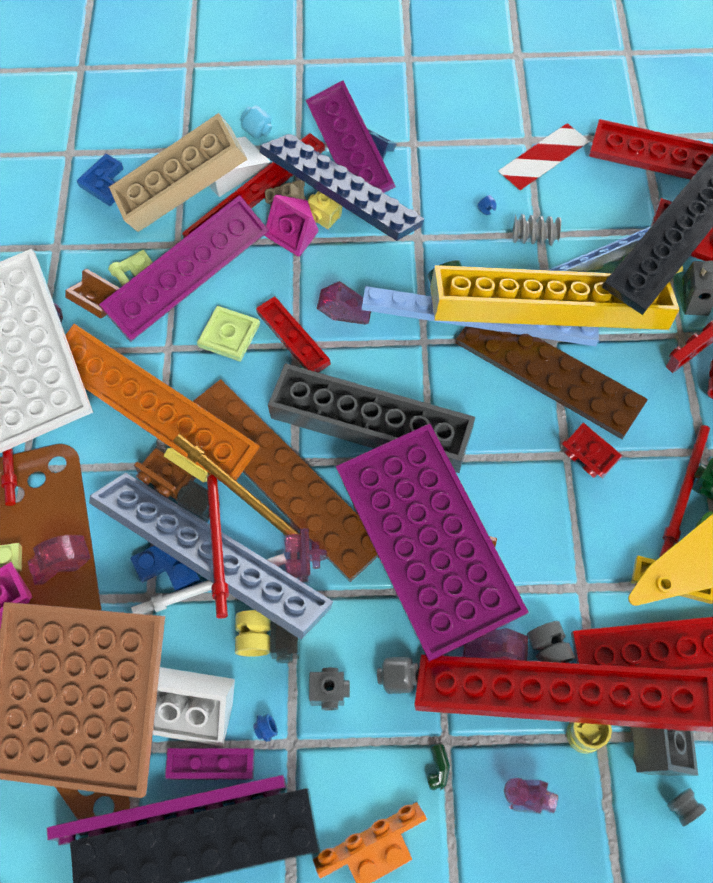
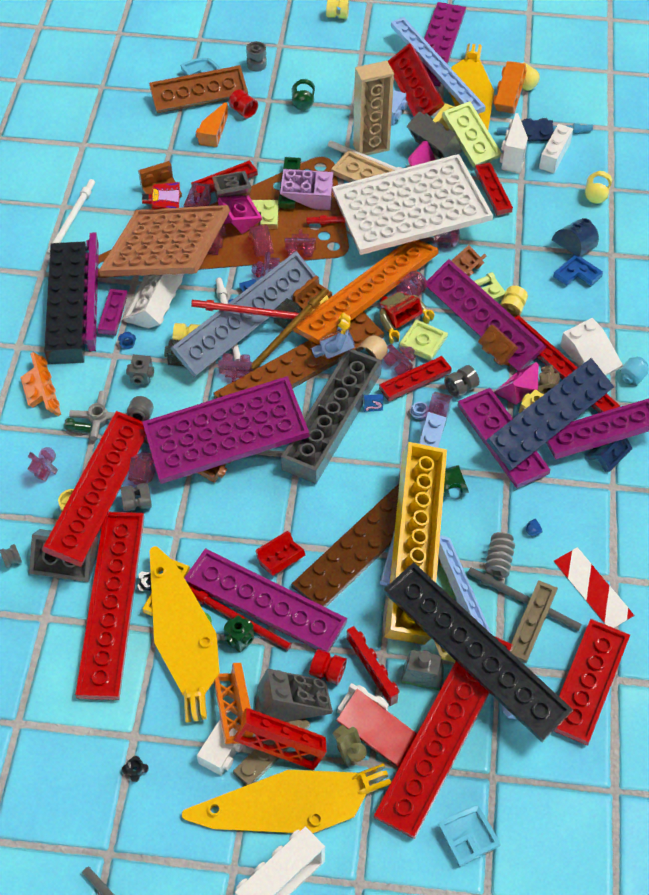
camera: 95 degrees right, 10 degrees down
(47, 179) = (577, 237): none -> dark blue brick
(65, 513) = (300, 242): none -> clear pink hips
(112, 546) = (269, 263): none -> clear pink hips
(134, 348) = (412, 283): none -> clear pink helmet
(160, 238) = (514, 300): none -> light yellow wheel
(178, 173) = (566, 305): tan brick -> none
(186, 361) = (401, 309): none -> torso
(238, 246) = (498, 345): none -> dark orange bracket
(253, 383) = (374, 346): none -> tan helmet
(259, 361) = (403, 358): none -> clear pink hips
(260, 416) = (337, 341): none -> medium blue torso
(295, 283) = (461, 381): none -> dark grey wheel
(338, 370) = (373, 402): none -> blue tile
(341, 322) = (419, 406): none -> light blue plate
(360, 246) = (488, 416): none -> magenta plate
(417, 750) = (96, 414): none -> light grey bar
(565, 240) = (487, 580): none -> dark grey bar
(609, 196) = (533, 620): none -> dark tan plate
(655, 465) = (266, 601): none -> magenta plate
(671, 607) = (142, 583): none -> plate

